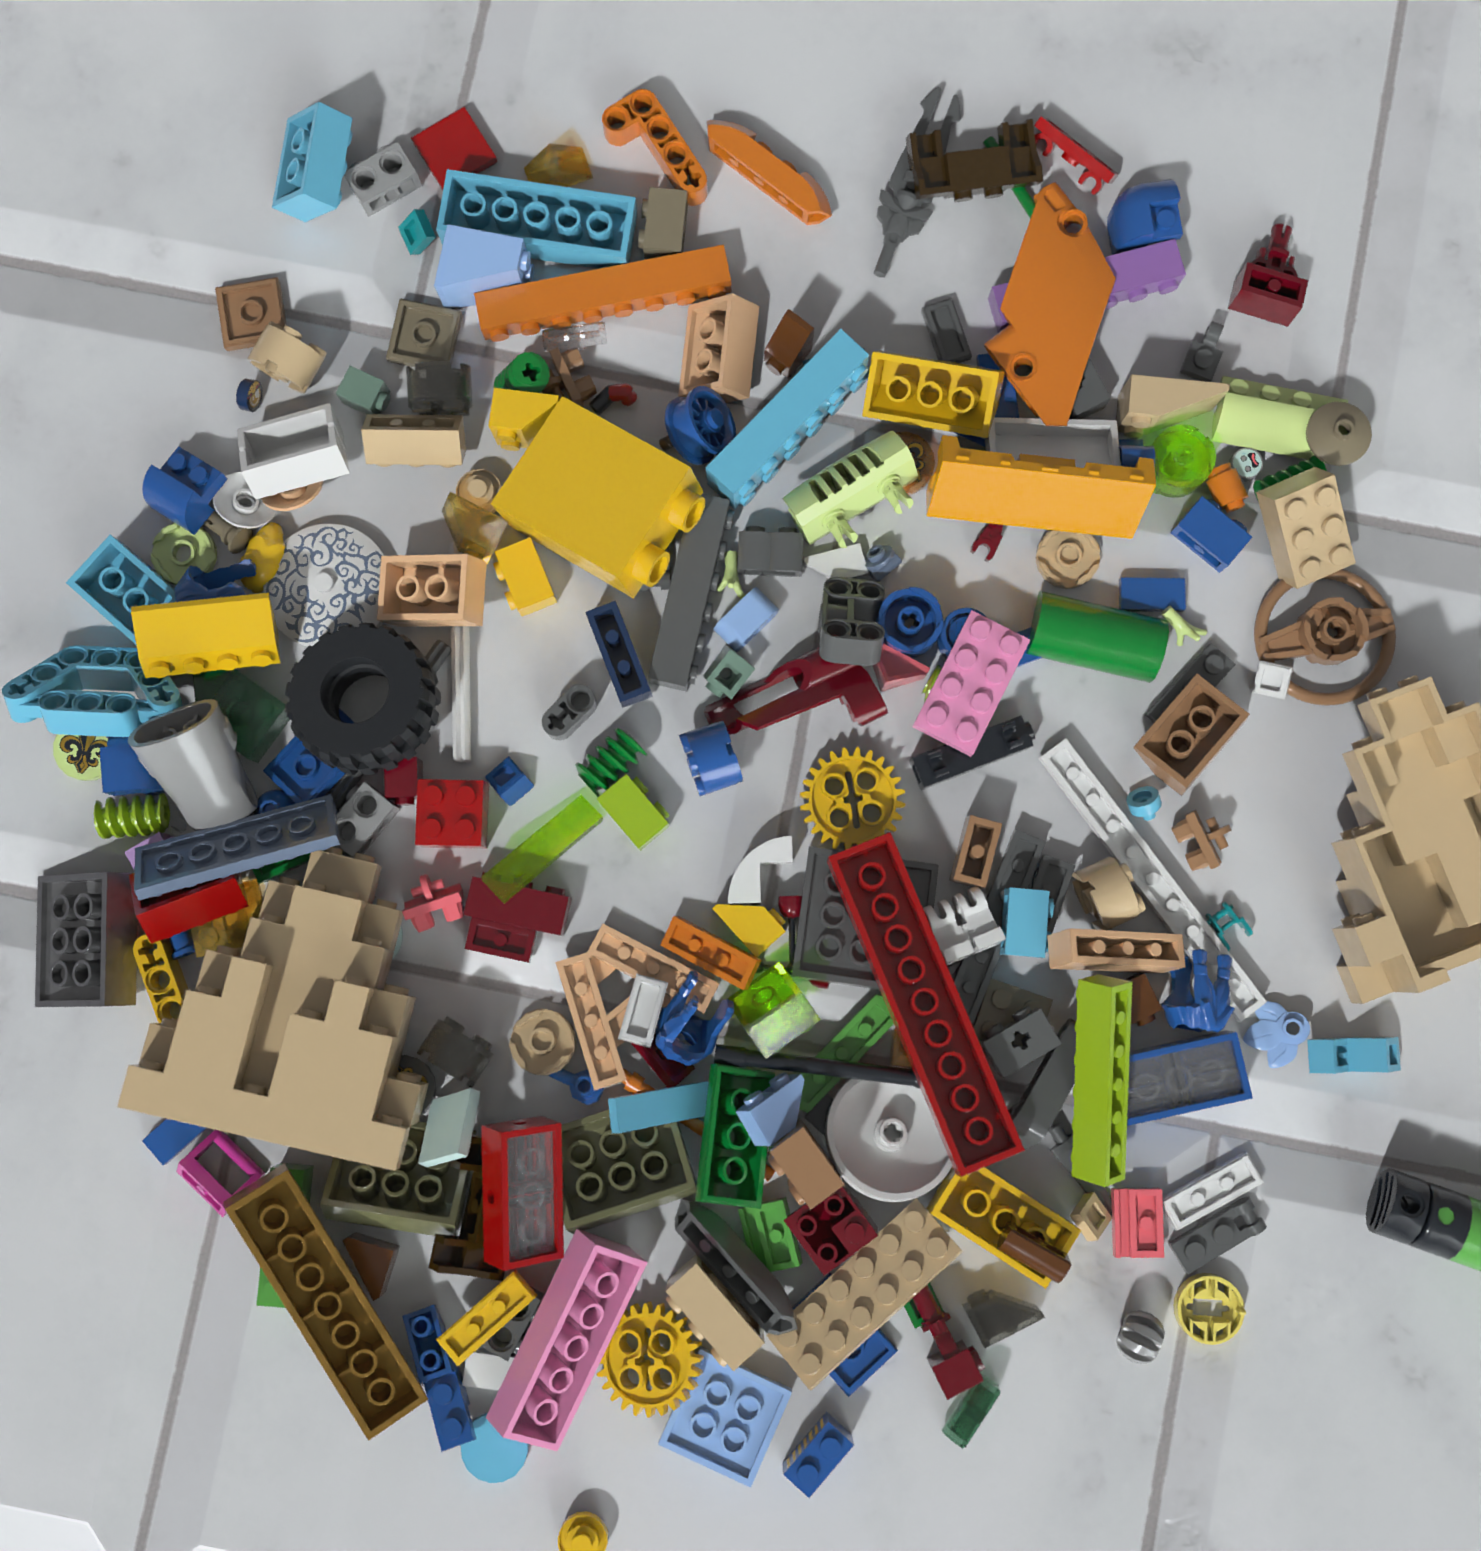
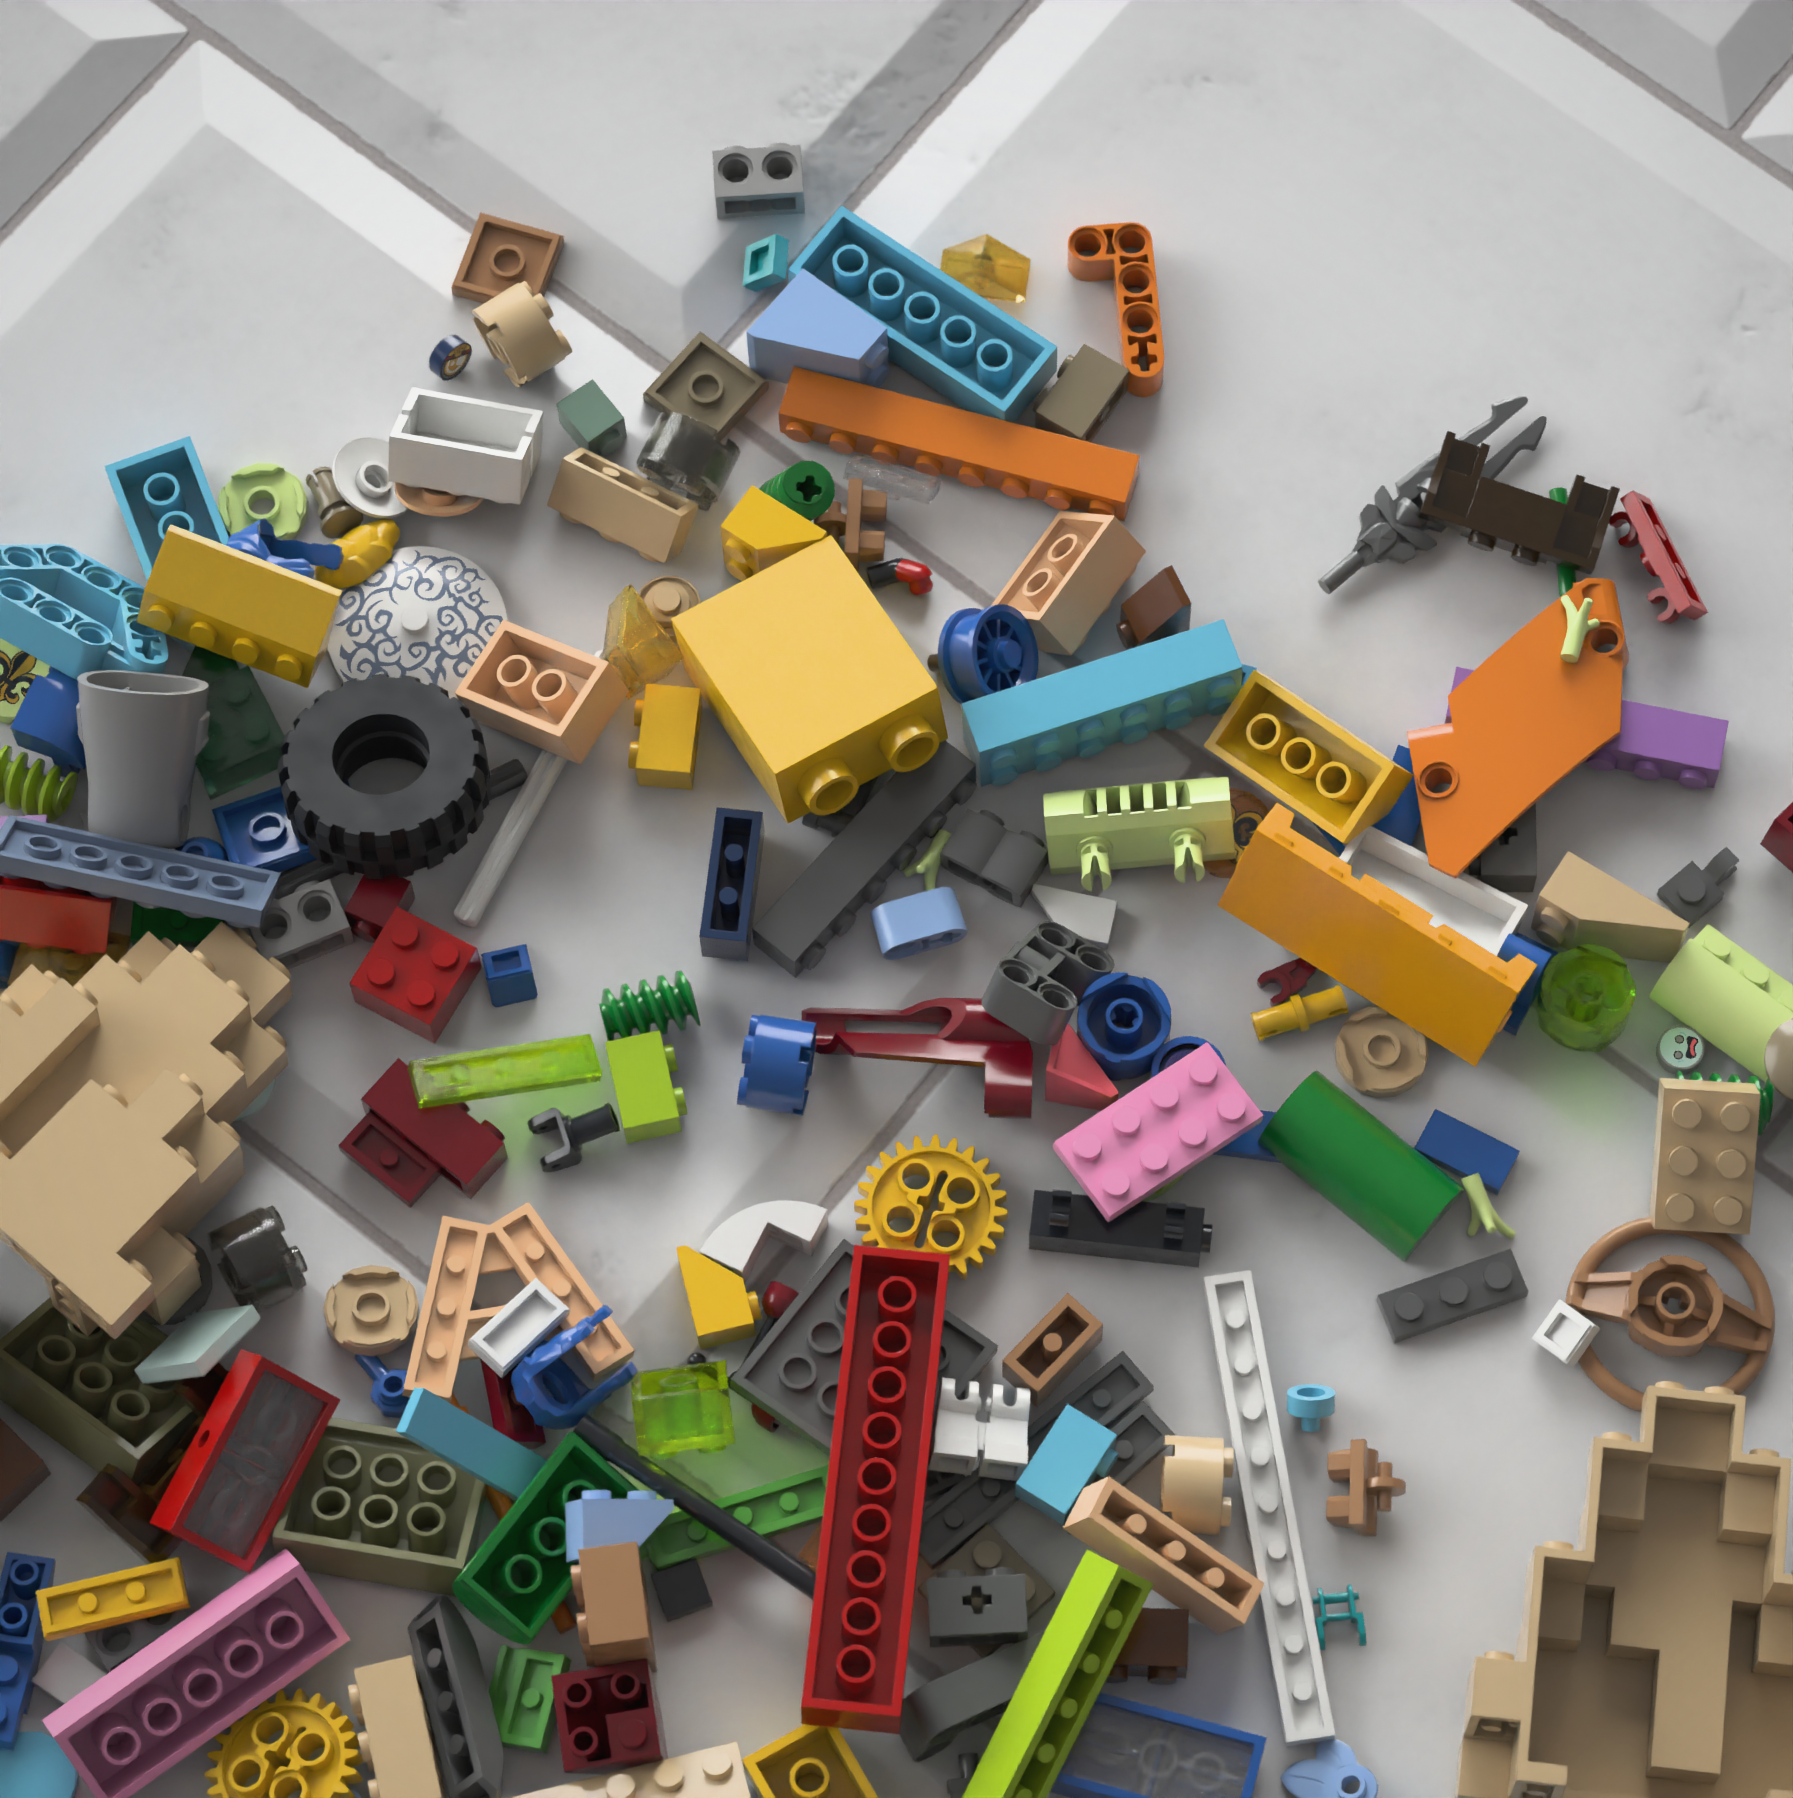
camera: 30 degrees right, 15 degrees down
(183, 489) = (305, 428): blue brick -> none
(312, 162) = (681, 122): medium azure brick -> none
(420, 908) = (309, 1072): coral hips -> none
(454, 145) = (871, 184): red tile -> none
(558, 712) = (618, 913): dark grey beam -> none
(607, 862) = (574, 1133): none -> black piece
(710, 952) = (644, 1304): orange plate -> none
(739, 673) = (876, 975): sand green brick -> none
(776, 178) = (1271, 438): orange brick -> none
(881, 561) = (1133, 938): sand blue plate -> none
(885, 1141) = (734, 1646): white dish -> none
(946, 332) = (1374, 699): dark grey tile -> none
(1007, 558) = (1299, 1013): none -> yellow pin
(1057, 223) = (1577, 628): none -> yellowish green bar
(1144, 216) = (1706, 675): blue brick -> none
(1190, 734) = (1415, 1344): medium nougat slope -> none
(1211, 534) = (1584, 1111): blue brick -> none
(1212, 1001) = (1237, 1684): blue piece -> none
(1227, 487) = (1635, 1064): orange brick -> none

